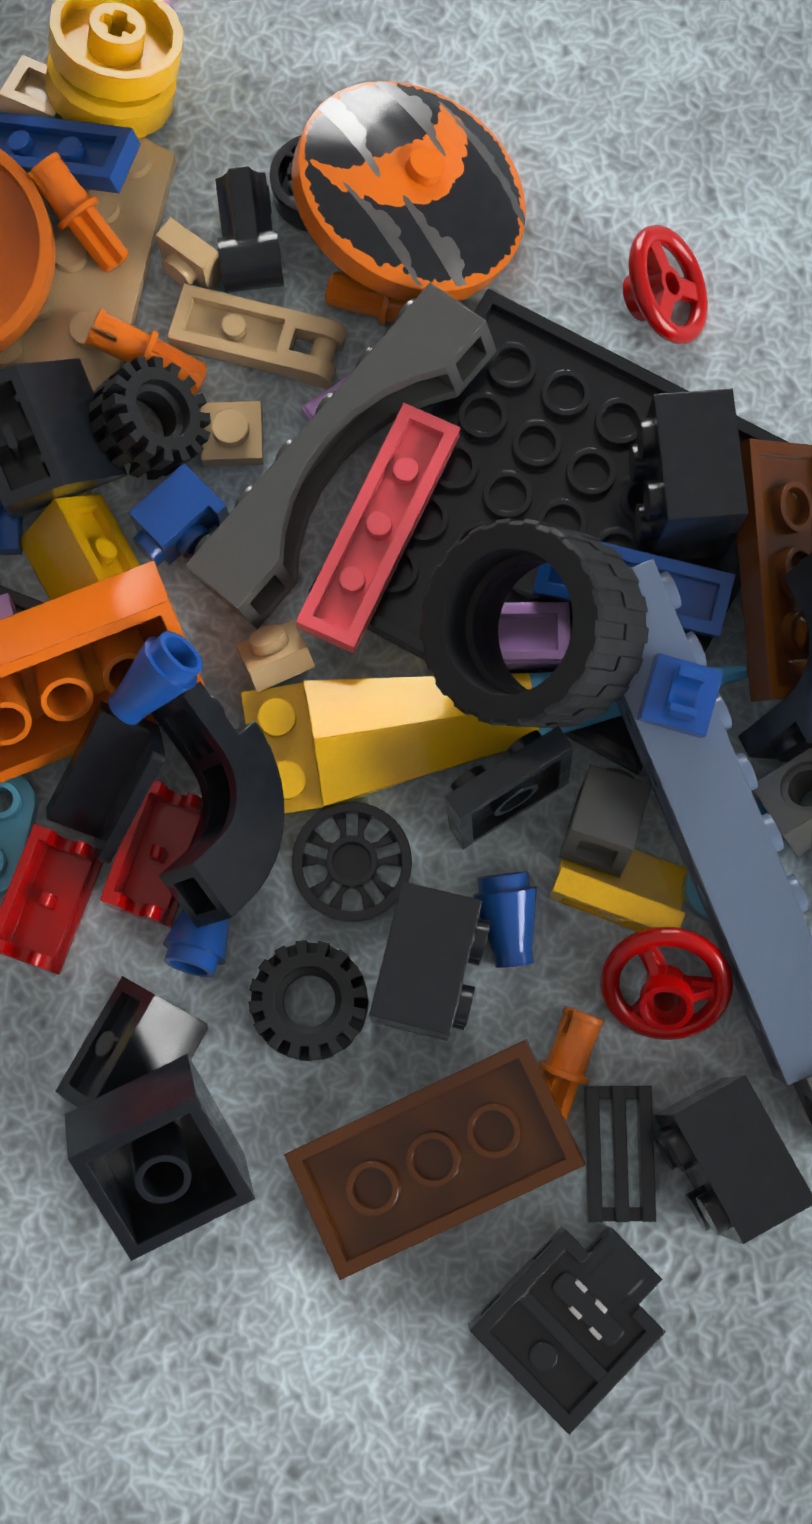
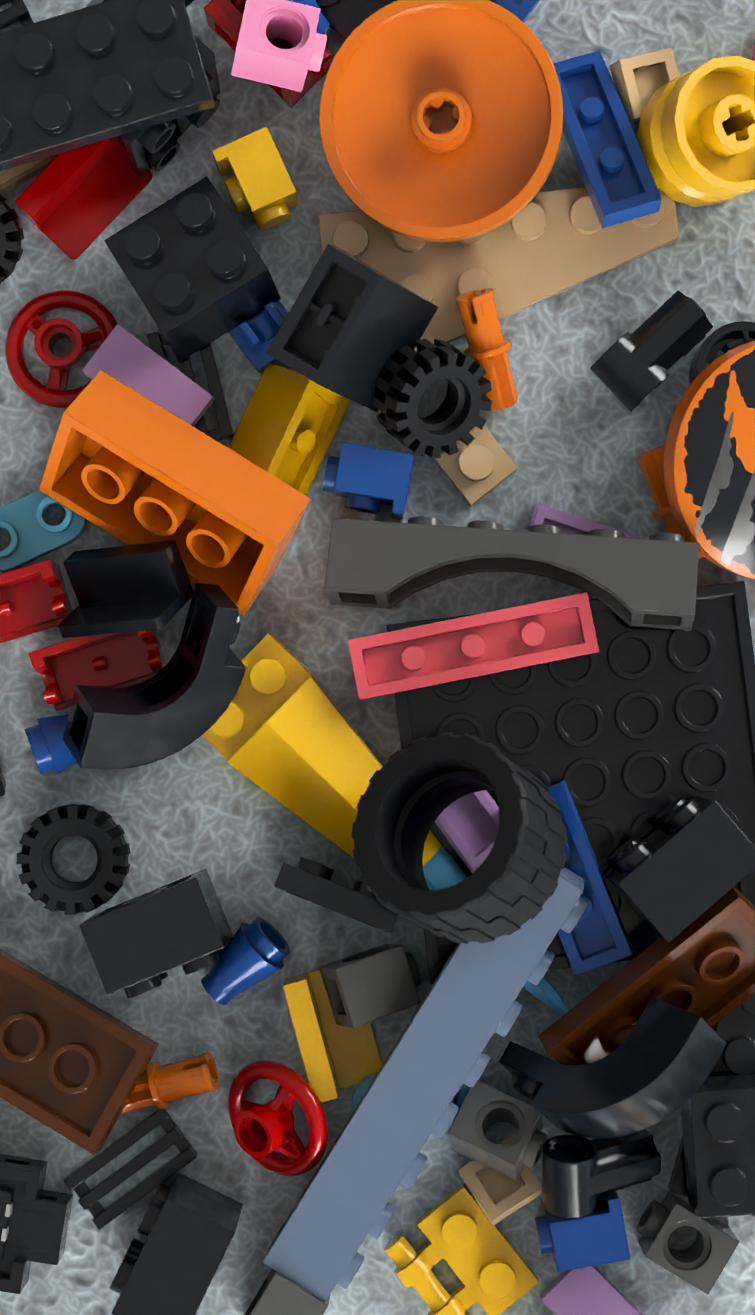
camera: 55 degrees right, 10 degrees up
(77, 212) = (560, 209): orange axle -> none
(158, 675) = (220, 575): blue cone -> none
(187, 256) = (593, 319): tan plate -> none
(256, 335) = (570, 421): tan plate -> none
(274, 654) = (317, 636): tan plate -> none
(351, 861) = (202, 812): black wheel -> none
(680, 695) = (488, 986): blue tile -> none

